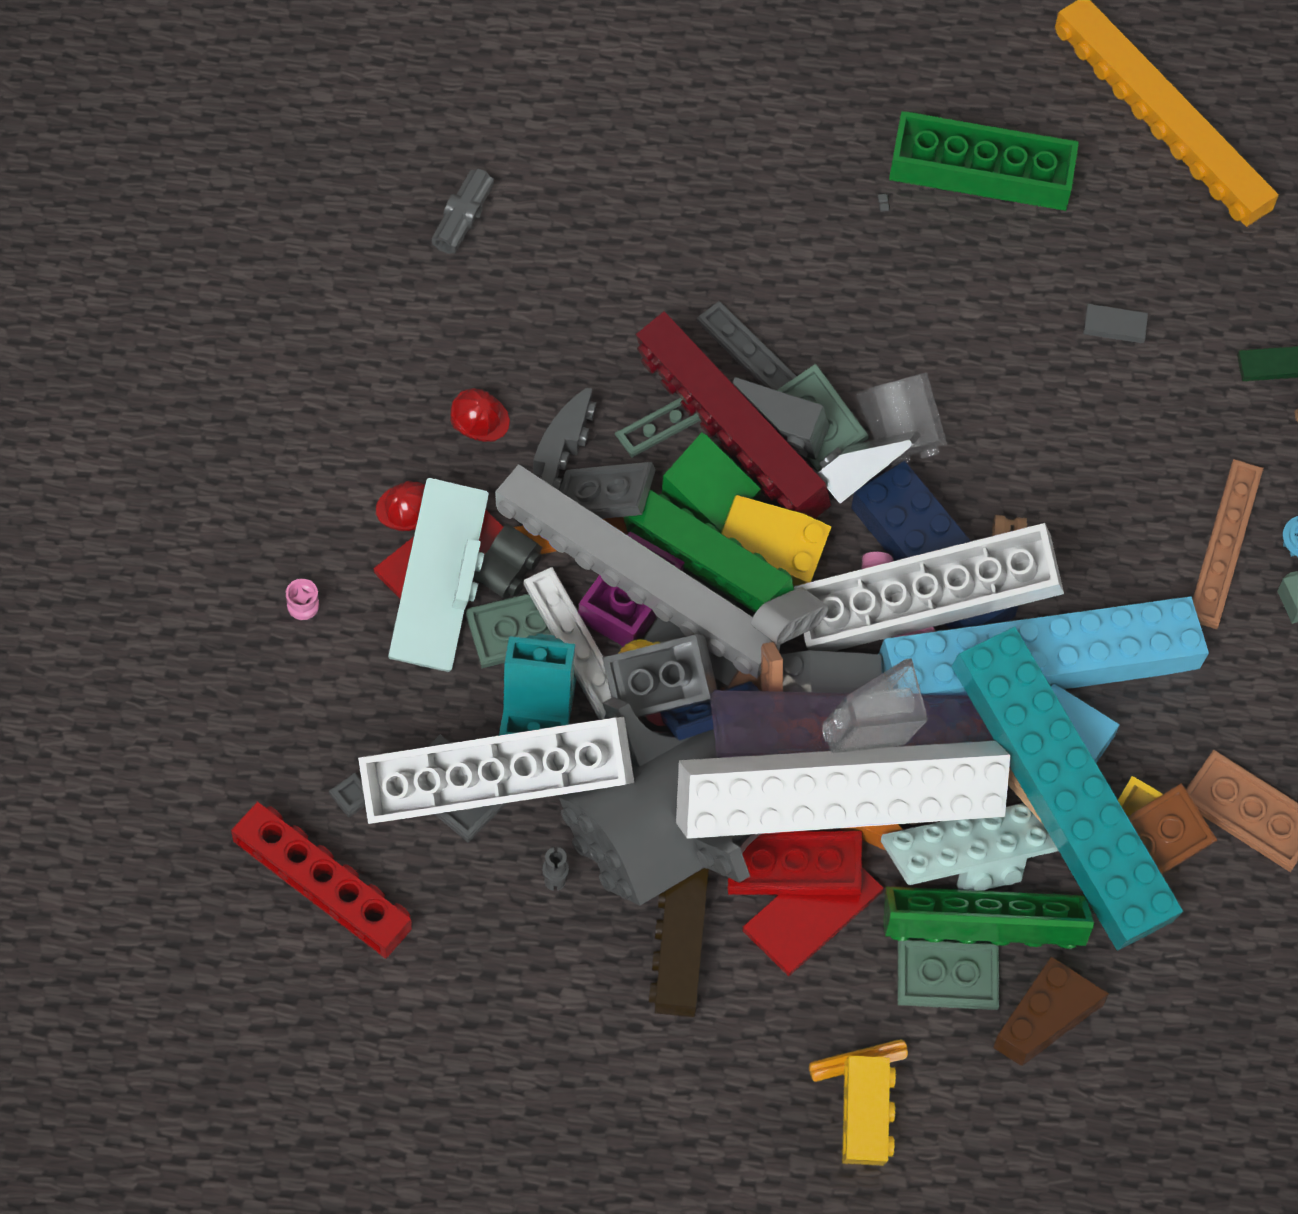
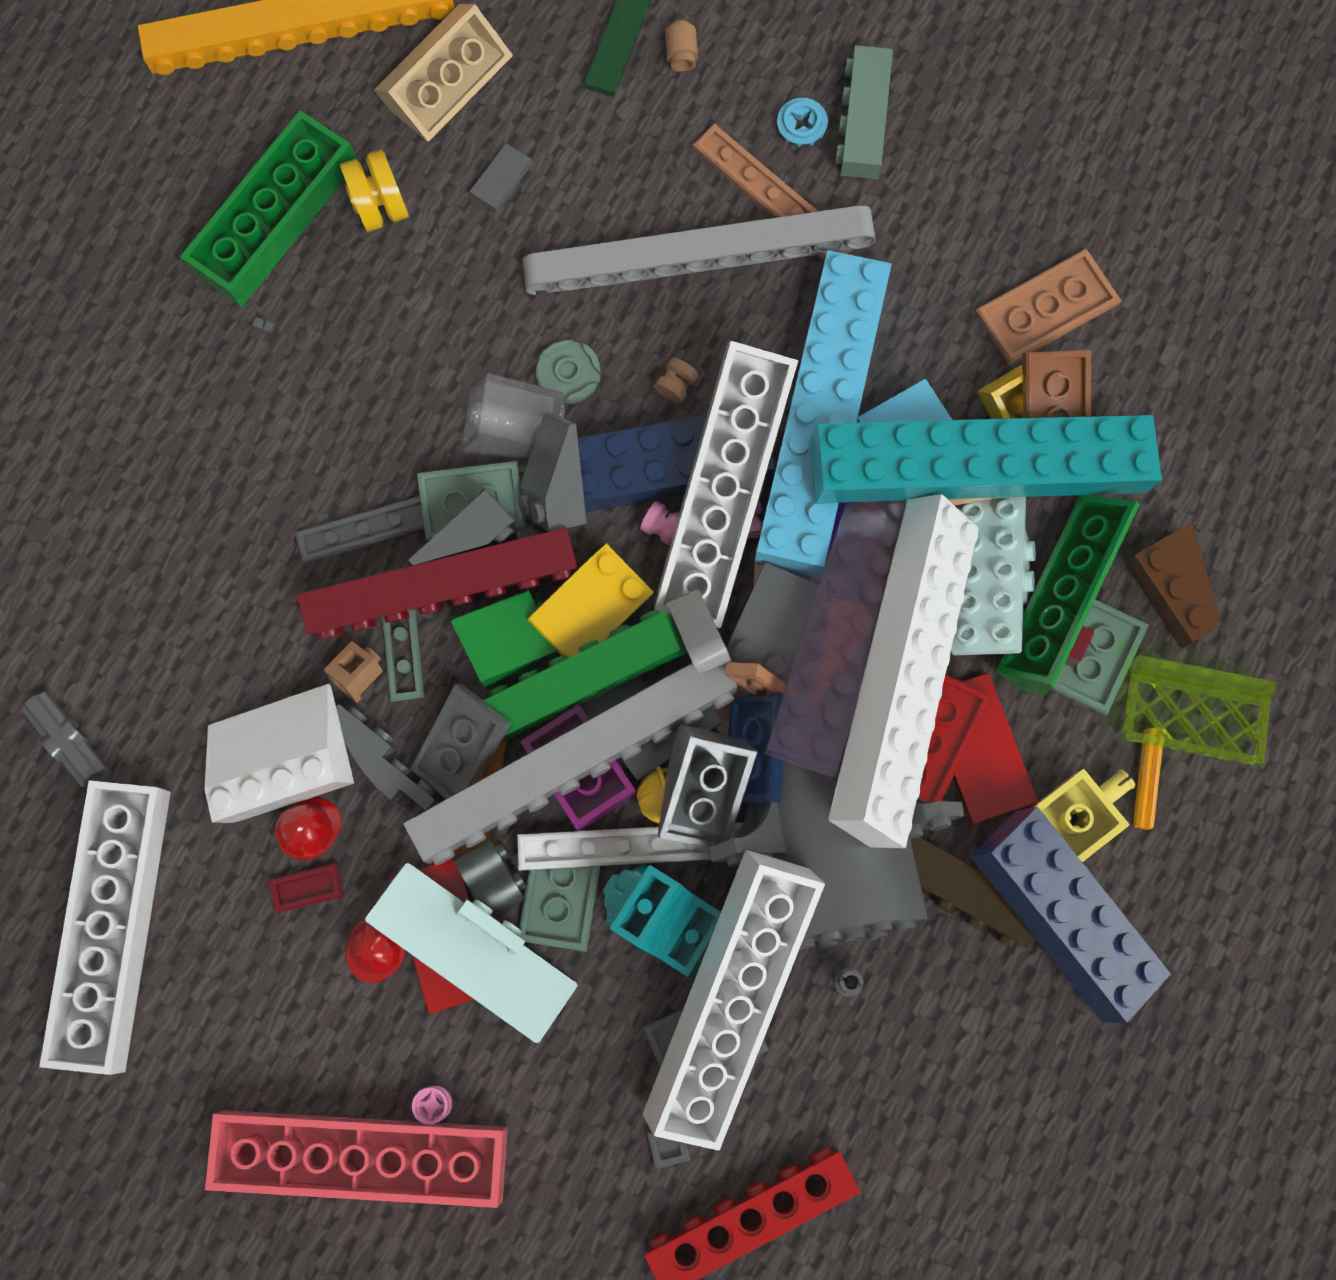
camera: 55 degrees left, 15 degrees up
(237, 562) = (357, 1158): none -> coral brick
(331, 303) = (105, 928): none -> white brick
(430, 436) = (306, 888): none -> dark red tile
(524, 364) = (275, 756): none -> white slope
(626, 391) = (354, 670): none -> medium nougat brick
(699, 1019) = (1071, 915): none -> brick
(767, 997) = (1097, 815): none -> light yellow brick
(867, 1110) = (1211, 796): yellow brick -> none
(878, 713) = (857, 597): clear slope -> none
(943, 944) = (1080, 646): none -> dark red tile
(969, 1068) = (1209, 683): none -> clear neon green fence
(980, 448) = (574, 381): none -> sand green tile
(1042, 228) = (373, 191): none -> yellow wheel
(1138, 502) = (699, 250): none -> light grey beam
(1183, 239) = (444, 71): none -> tan slope

